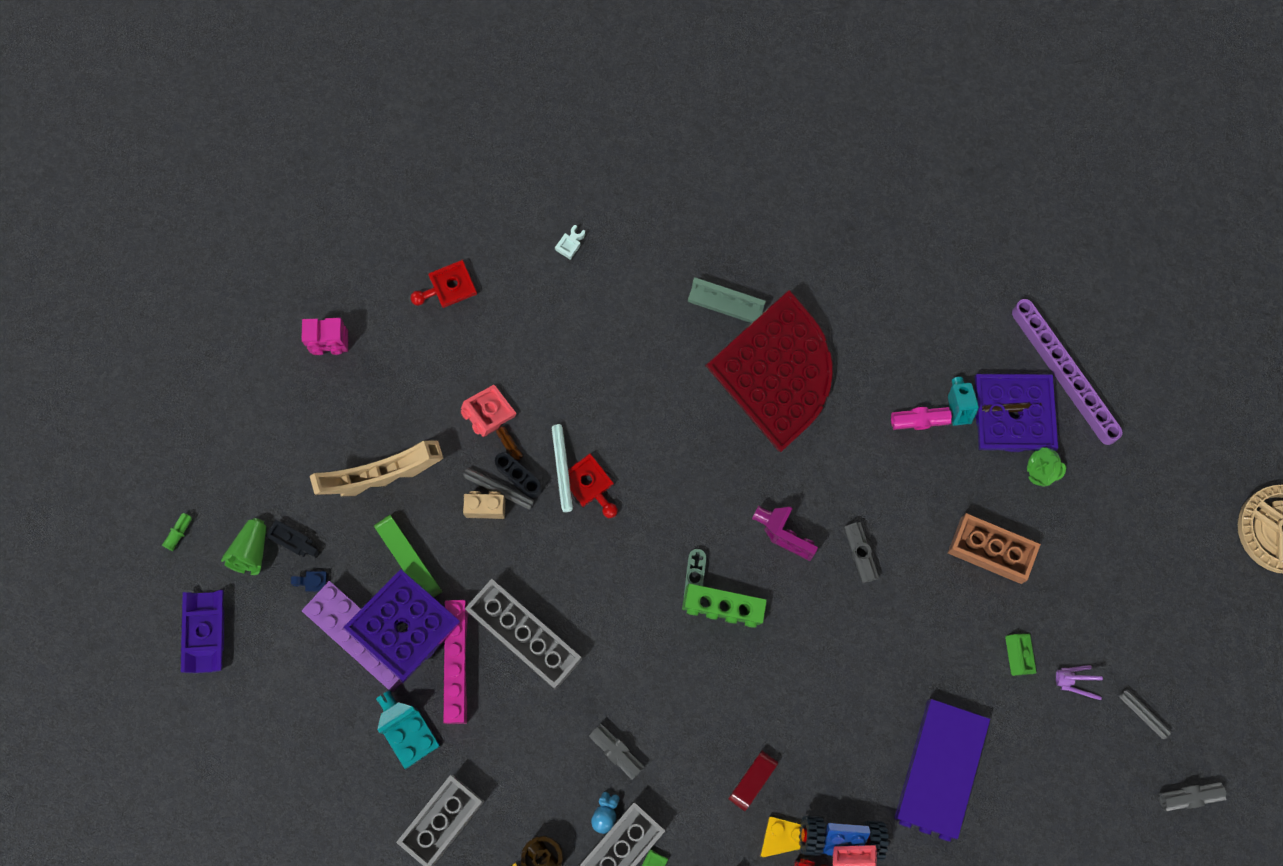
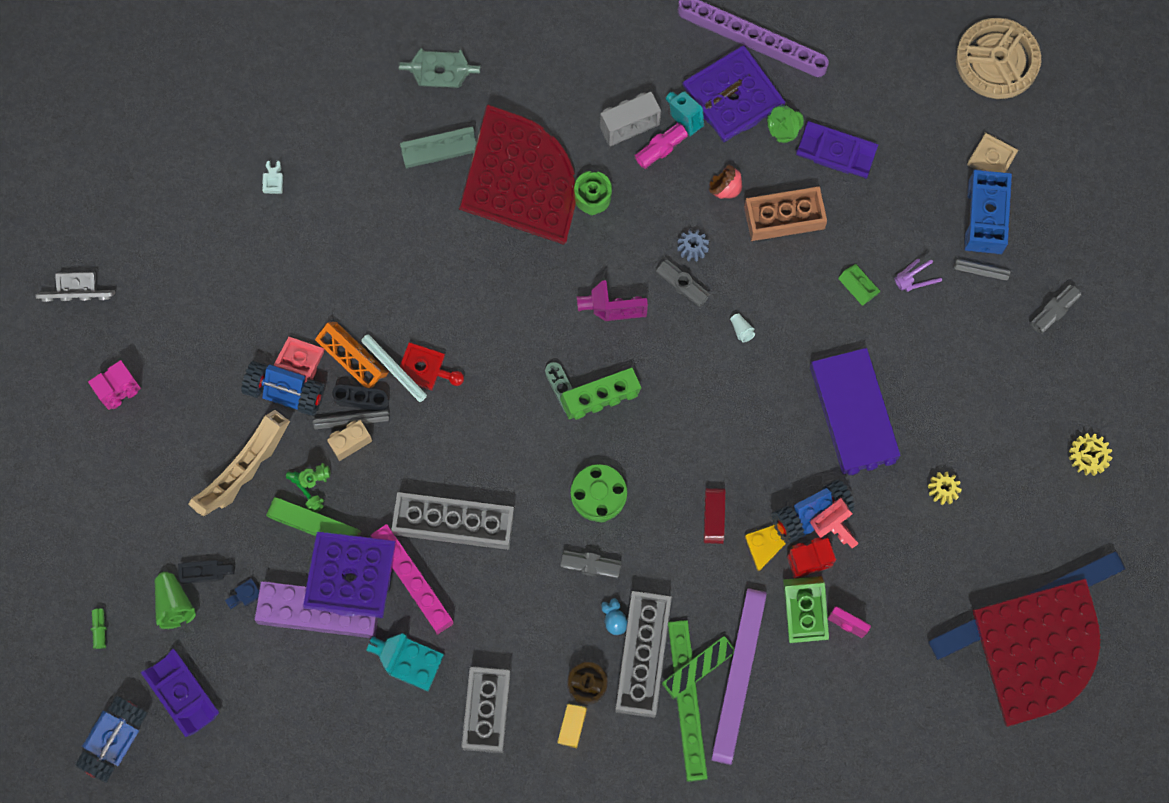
camera: 35 degrees left, 0 degrees up
(120, 633) = (110, 739): none -> plate
(352, 233) = (75, 285): none -> light grey bracket
(424, 517) = (307, 479): none -> bright green plant
(440, 280) = (193, 287): red plate -> none
(458, 425) = (283, 387): none -> plate
(509, 443) = (333, 377): reddish brown axle -> none
(541, 430) = (356, 350): none -> orange fence
(665, 692) = (598, 493): none -> bright green piece
(763, 222) = (425, 64): none -> sand green plate
(839, 414) = (591, 202): none -> bright green brick
(888, 517) = (687, 250): none -> sand blue gear
(888, 628) = (742, 328): none -> light aqua cone
(908, 377) = (630, 118): none -> light grey brick
(957, 488) = (726, 184): none -> hair
(1078, 520) = (837, 150): none -> dark purple piece
(1172, 681) = (988, 229): none -> blue plate
(1221, 617) = (992, 155): none -> tan plate

